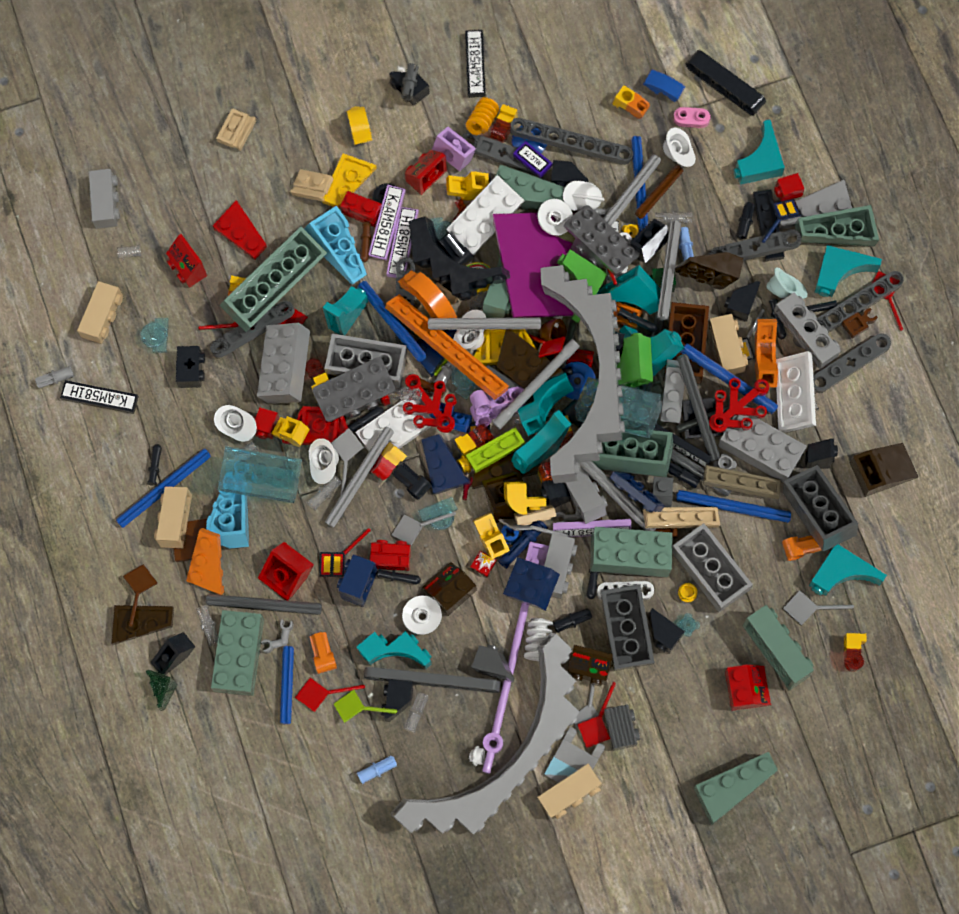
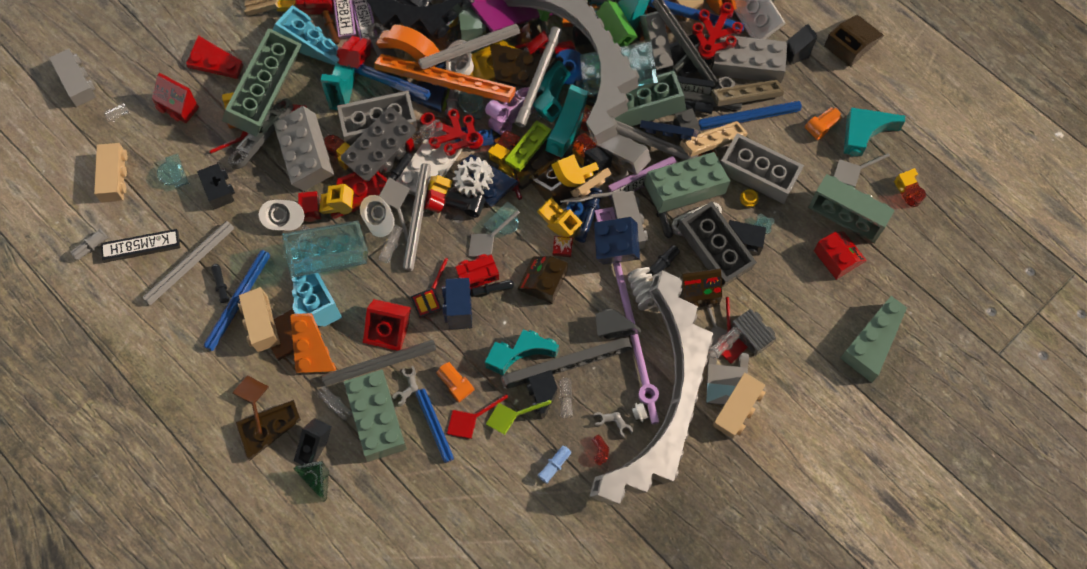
camera: 30 degrees left, 5 degrees down
(135, 432) = (185, 265): none -> light grey axle
(374, 280) = (354, 52): none -> red brick
(422, 605) = (530, 302): white dish -> none
(426, 776) = (603, 450): none -> clear red arm
(432, 466) = (482, 174): none -> white gear
(453, 750) = (613, 417): none -> light grey arm
(598, 722) = (718, 349): none -> clear pin
(820, 508) = (824, 84): dark grey brick -> none

